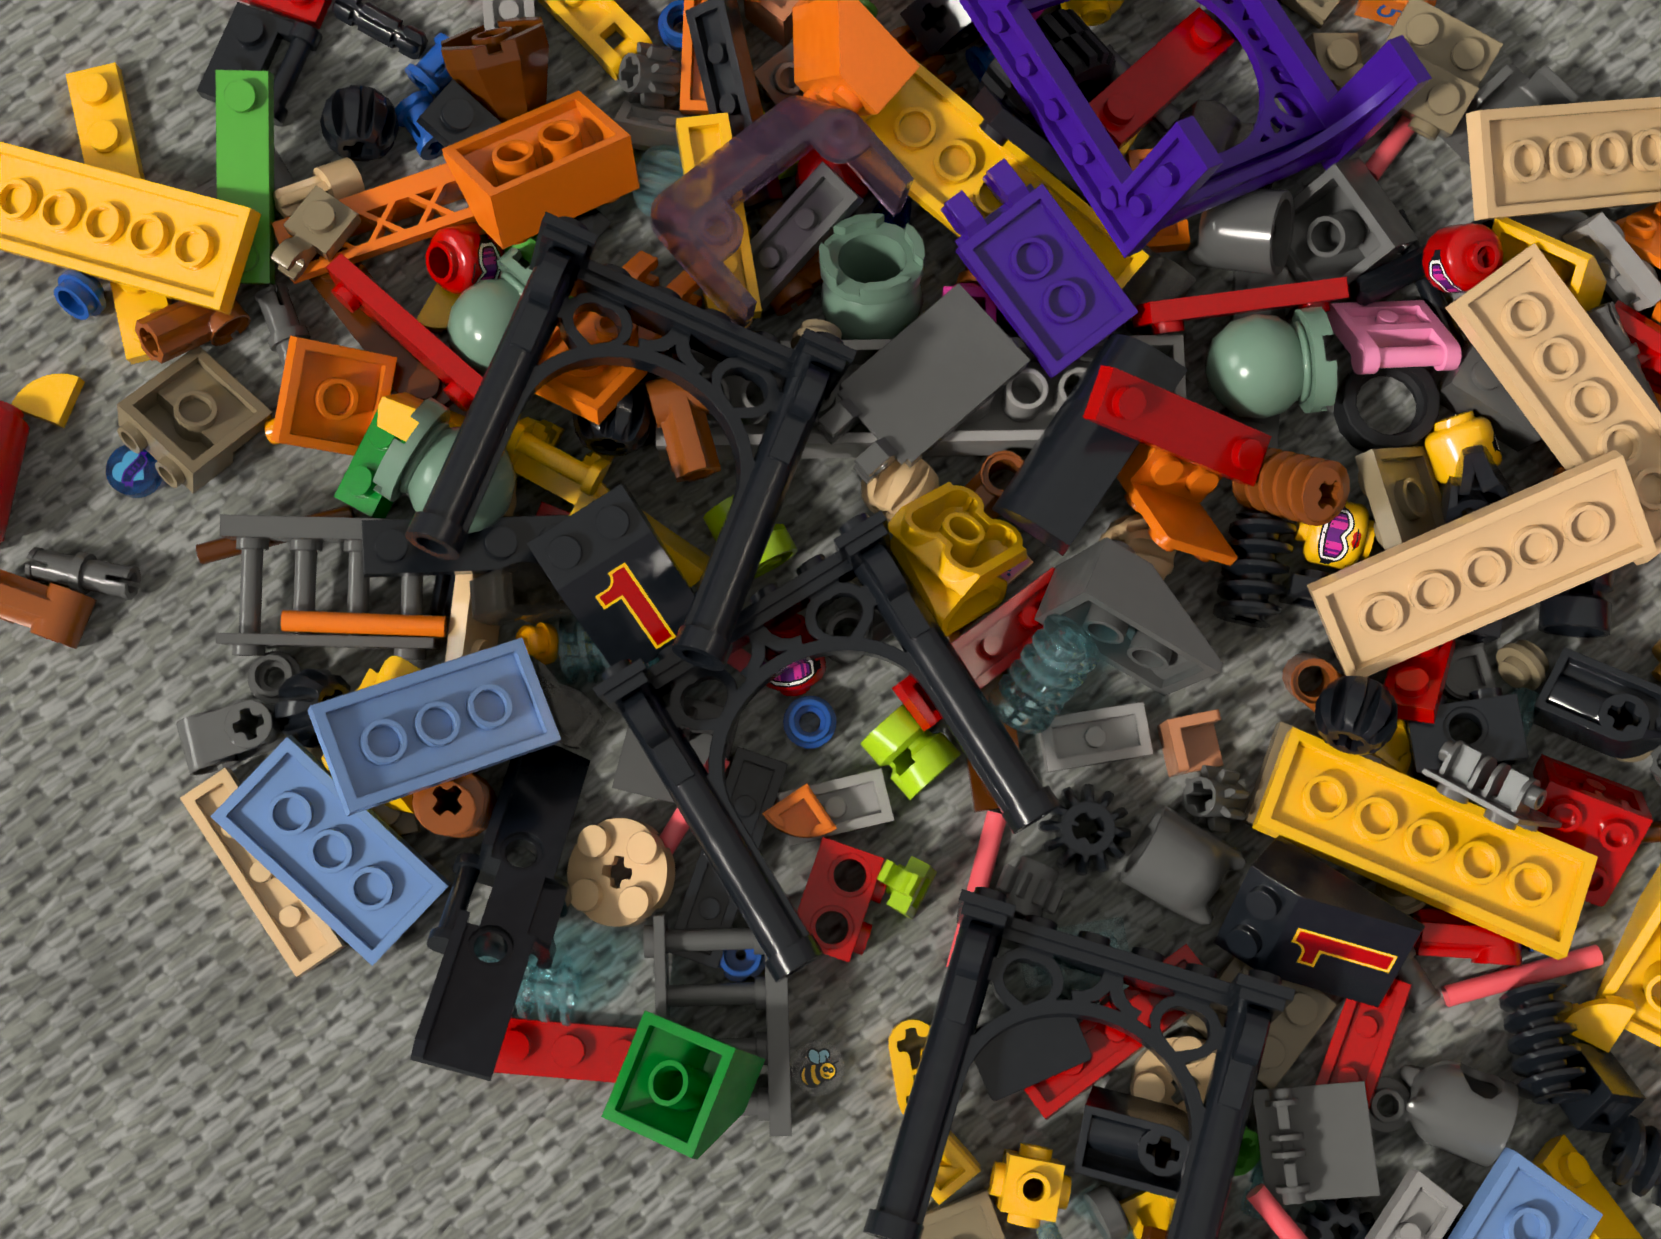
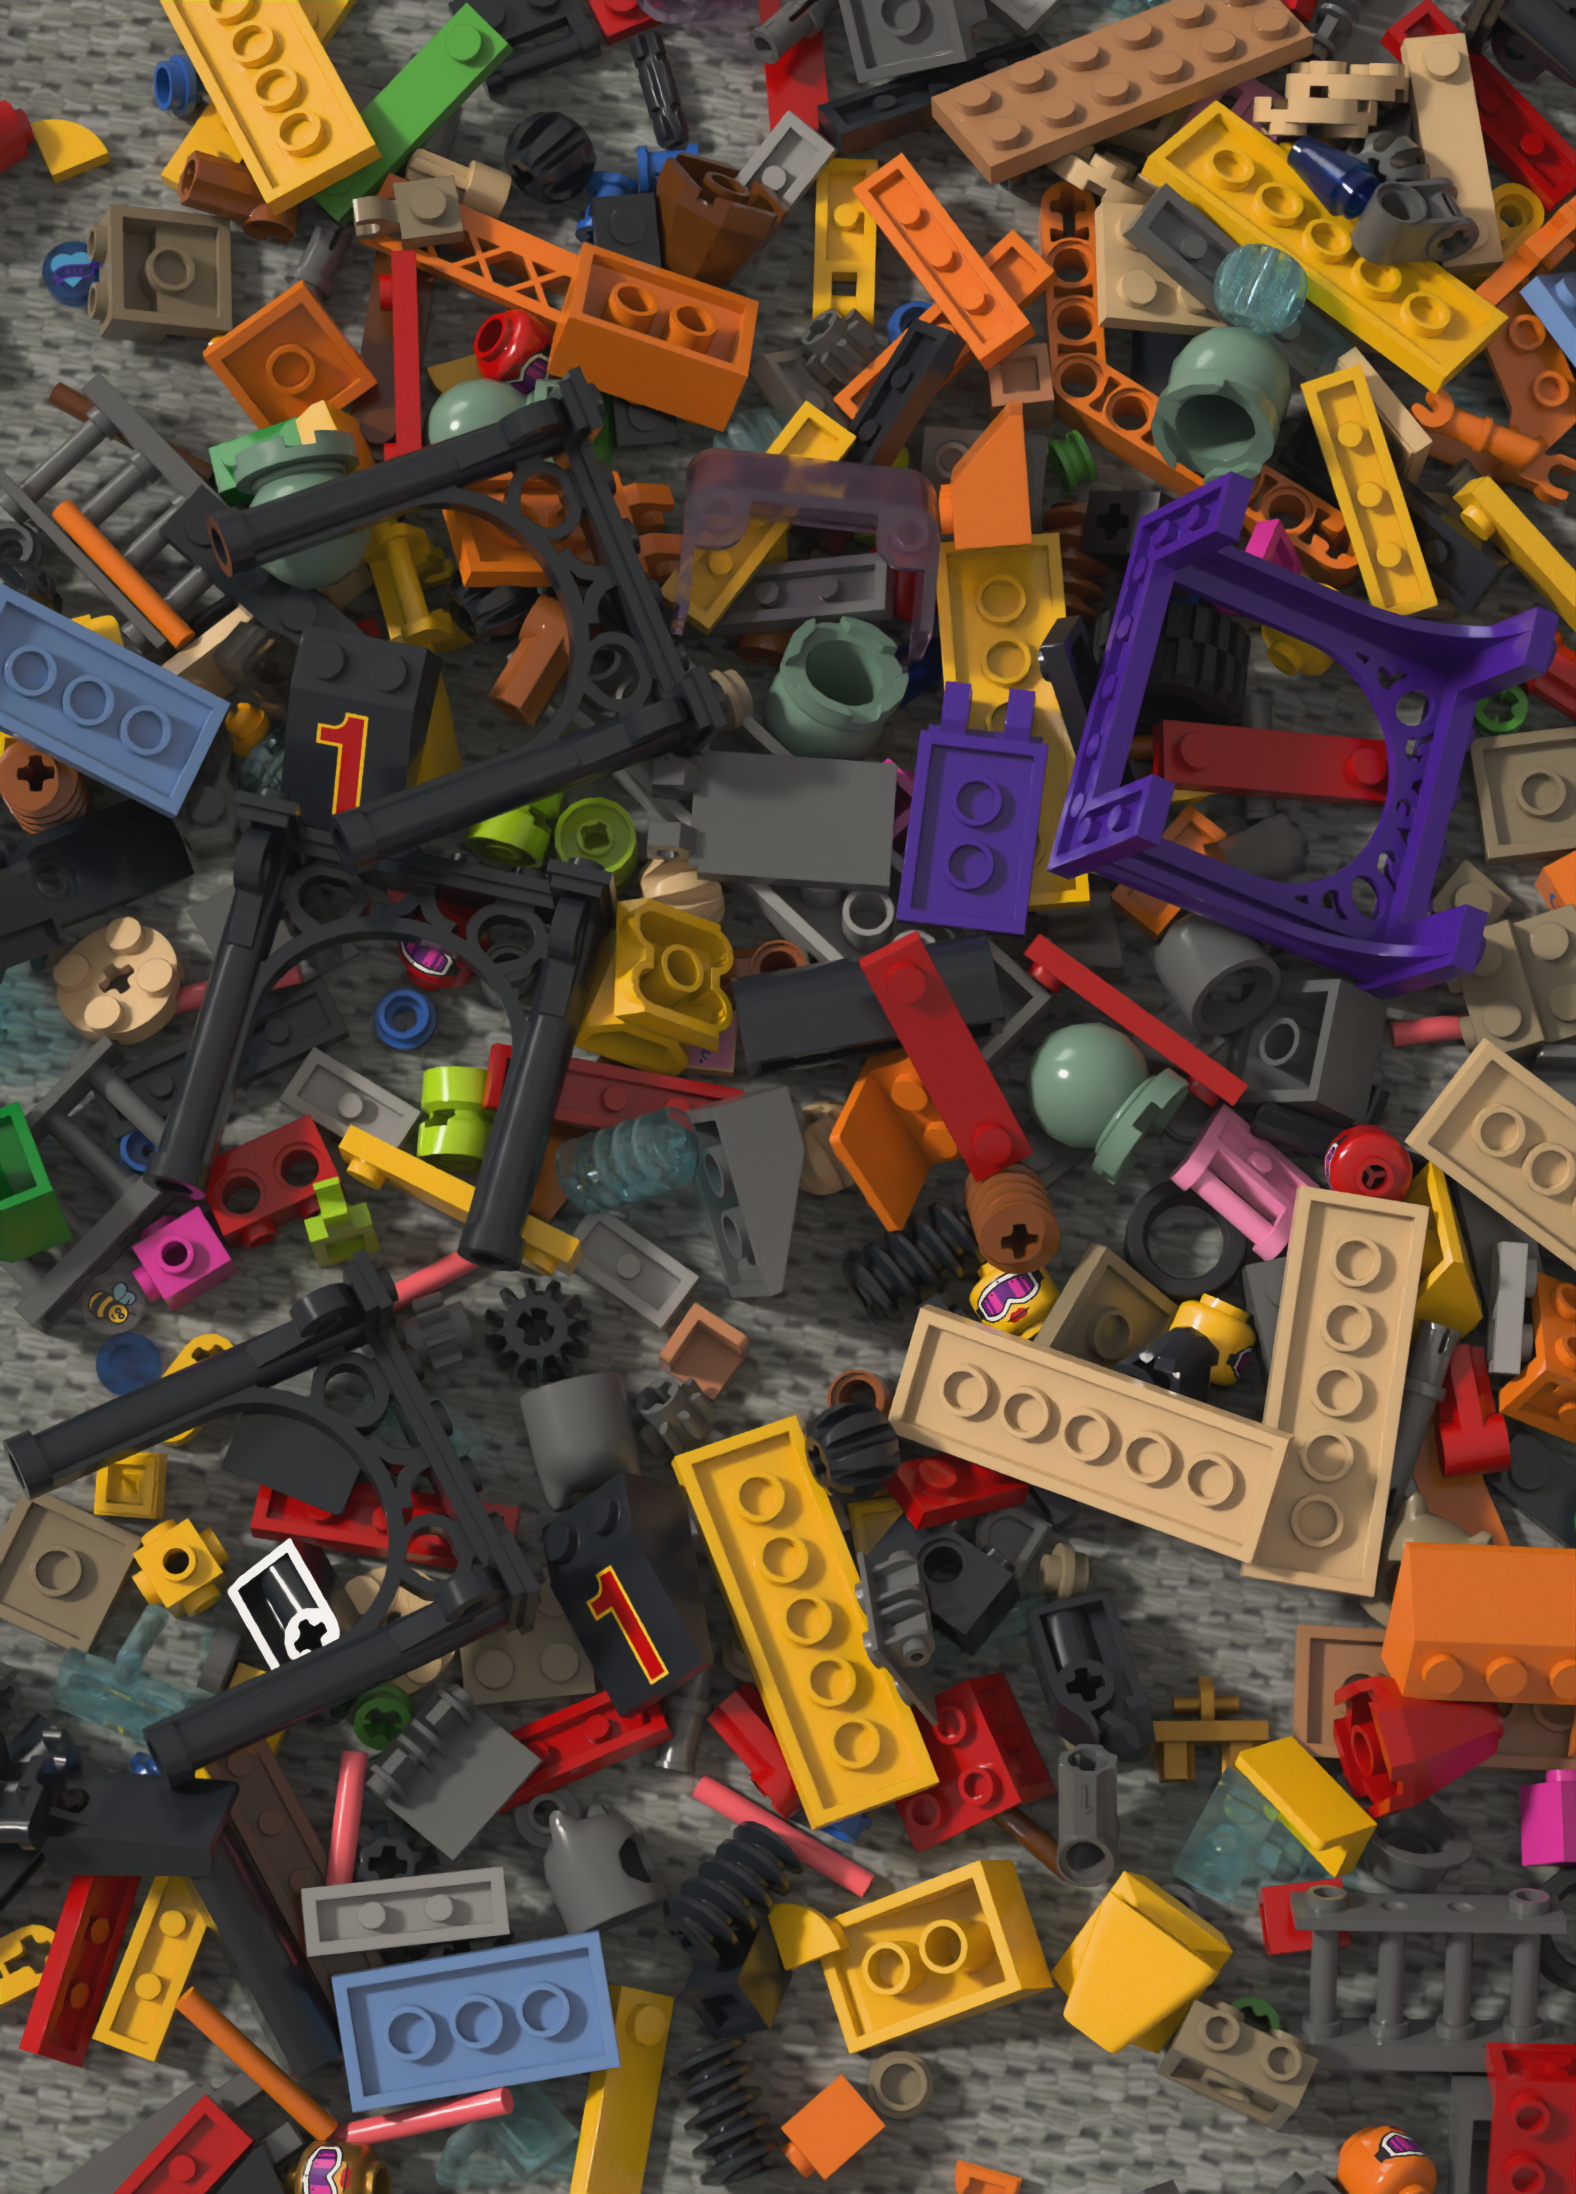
camera: 50 degrees right, 5 degrees down
(800, 815) = (312, 1080): orange tile -> none
(819, 506) = (602, 833): none -> lime wheel
(831, 1001) = (180, 1259): none -> dark pink brick
(864, 1093) = (128, 1363): none -> clear blue tile
(895, 826) = (378, 1162): none -> yellow plate
(1579, 613) = (1159, 1582): black wheel -> none

